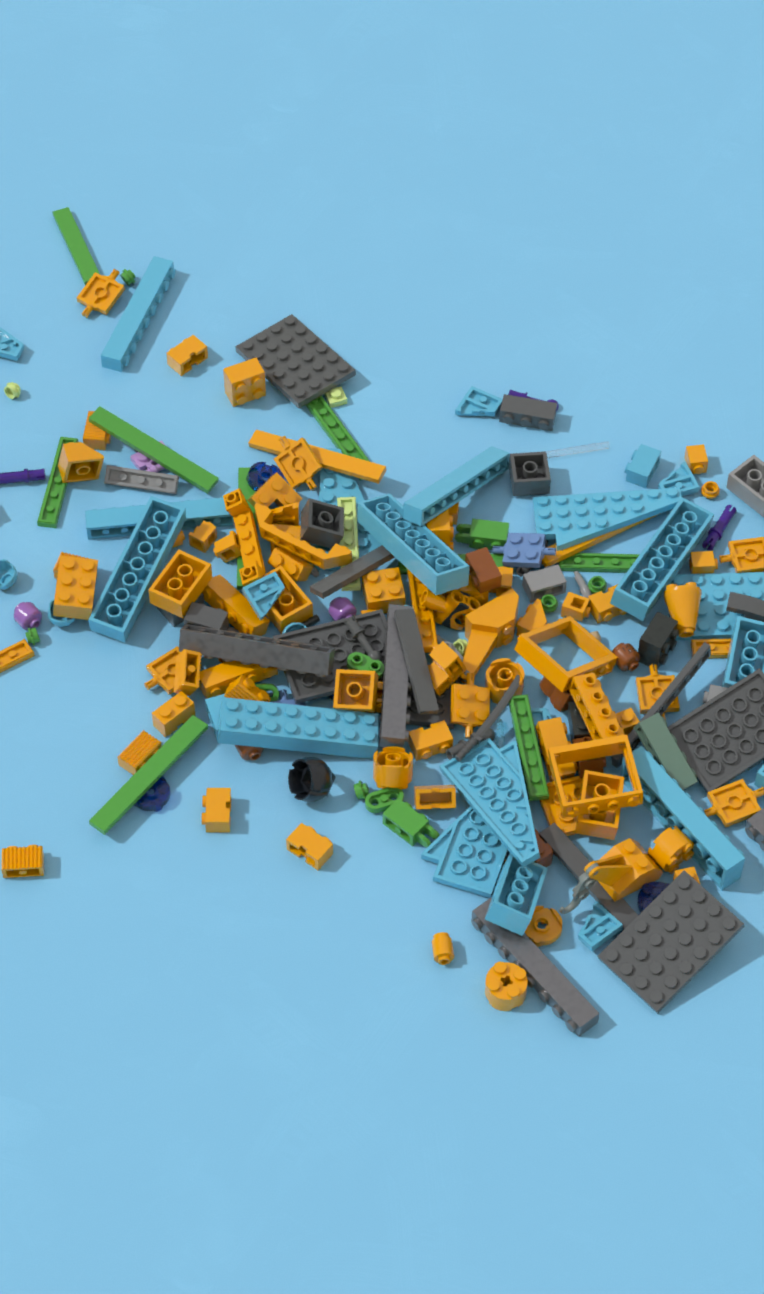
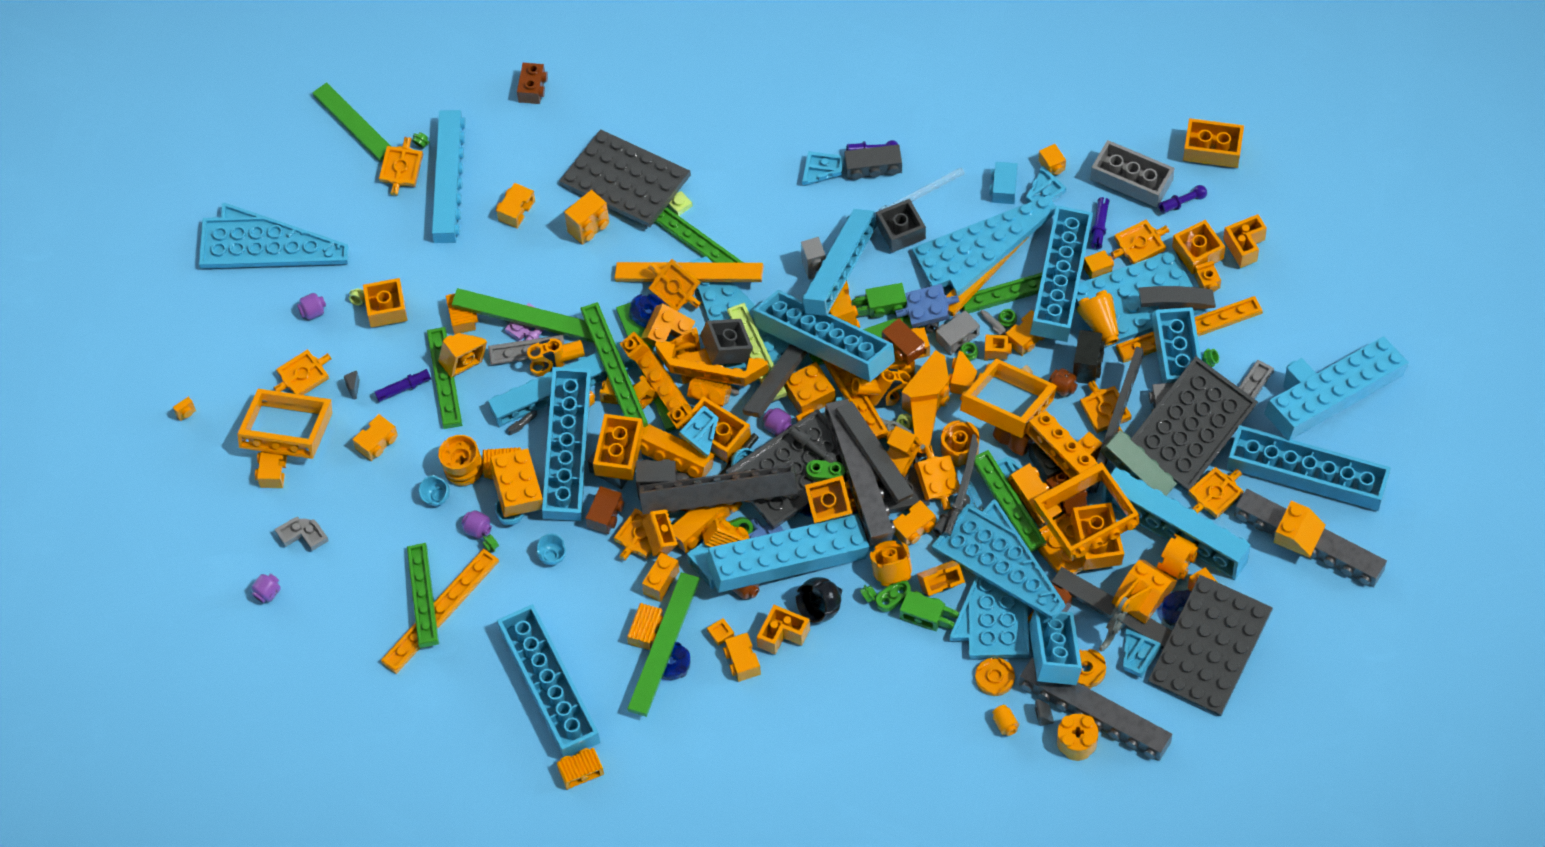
camera: 15 degrees left, 5 degrees up
(28, 773) = (548, 681): none -> medium azure brick
(32, 401) = (385, 302): none -> light orange brick
(36, 554) = (461, 460): none -> light orange wheel
(84, 657) = (551, 549): none -> medium azure hair
(103, 543) = (518, 425): none -> dark grey piece
(148, 638) = (604, 510): none -> dark orange brick
(162, 488) = (553, 354): none -> light orange connector
(207, 779) = (720, 631): none -> light orange plate
(211, 512) = (612, 362): none -> bright green tile
(247, 258) = (531, 83): none -> dark orange brick
(263, 792) = (782, 625): none -> light orange brick
(311, 845) = (843, 662): light orange brick -> none
(435, 469) = (812, 256): none -> light grey brick
(450, 905) = (995, 676): none -> light orange tile
(483, 954) = (1043, 713): none -> dark grey slope
(710, 490) = (1076, 183): light orange plate -> none

